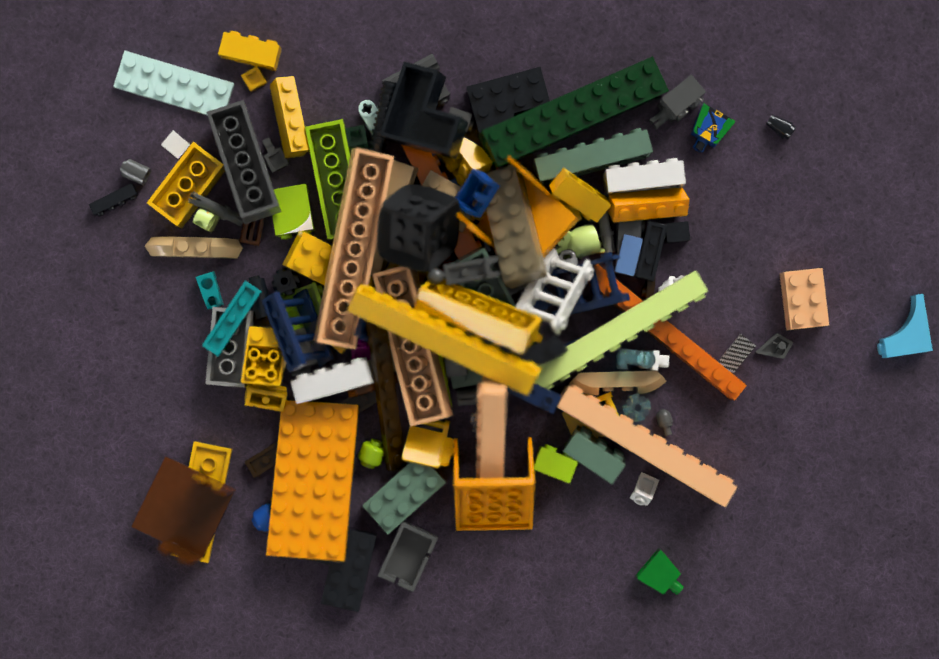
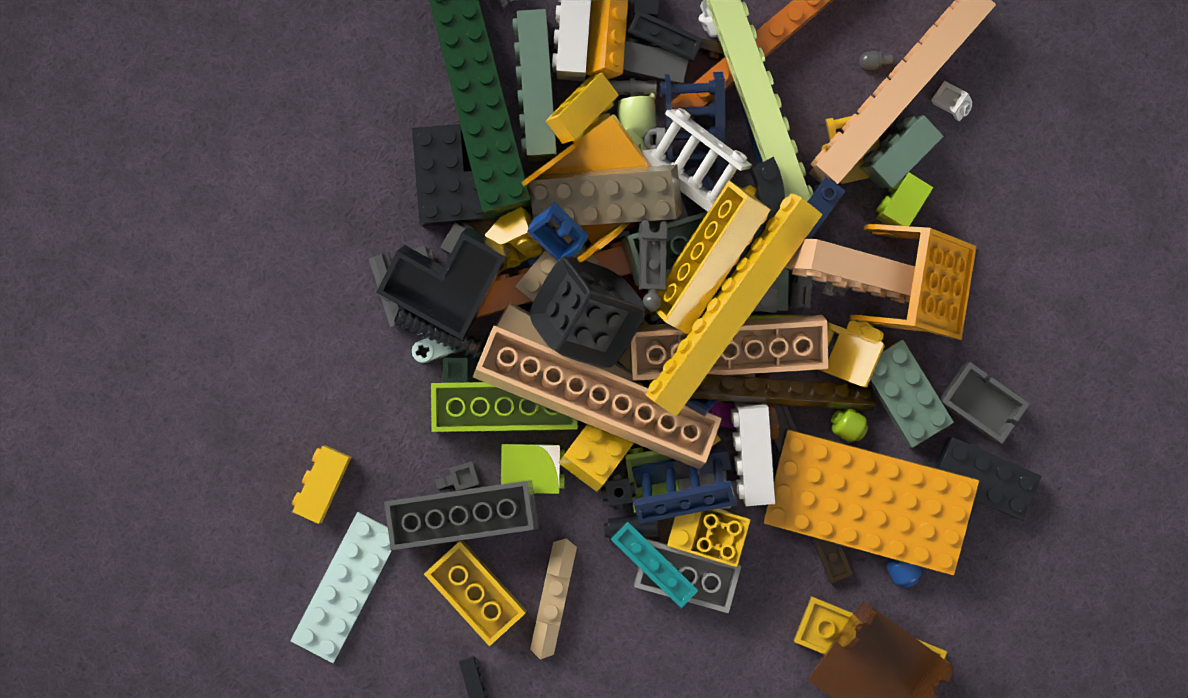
camera: 75 degrees left, 0 degrees up
(135, 171) = (445, 654): dark grey brick -> none
(175, 144) = (420, 598): white sticker -> none
(206, 220) = (522, 575): yellowish green leg -> none
(210, 290) = (610, 588): teal leg -> none
(224, 212) = (517, 552): dark grey pin -> none
(251, 231) = (554, 516): reddish brown tile -> none
(254, 79) = (356, 486): yellow tile -> none
(266, 397) = (758, 542): yellow brick -> none
(289, 117) = (414, 449): yellow brick -> none
(628, 255) = (664, 62): medium blue tile -> none
(630, 411) = (846, 96): clear light blue brick -> none
(642, 359) = (797, 64): clear light blue hips -> none
(643, 381) = (820, 77): tan brick -> none
(660, 574) = (1058, 101): green torso -> none

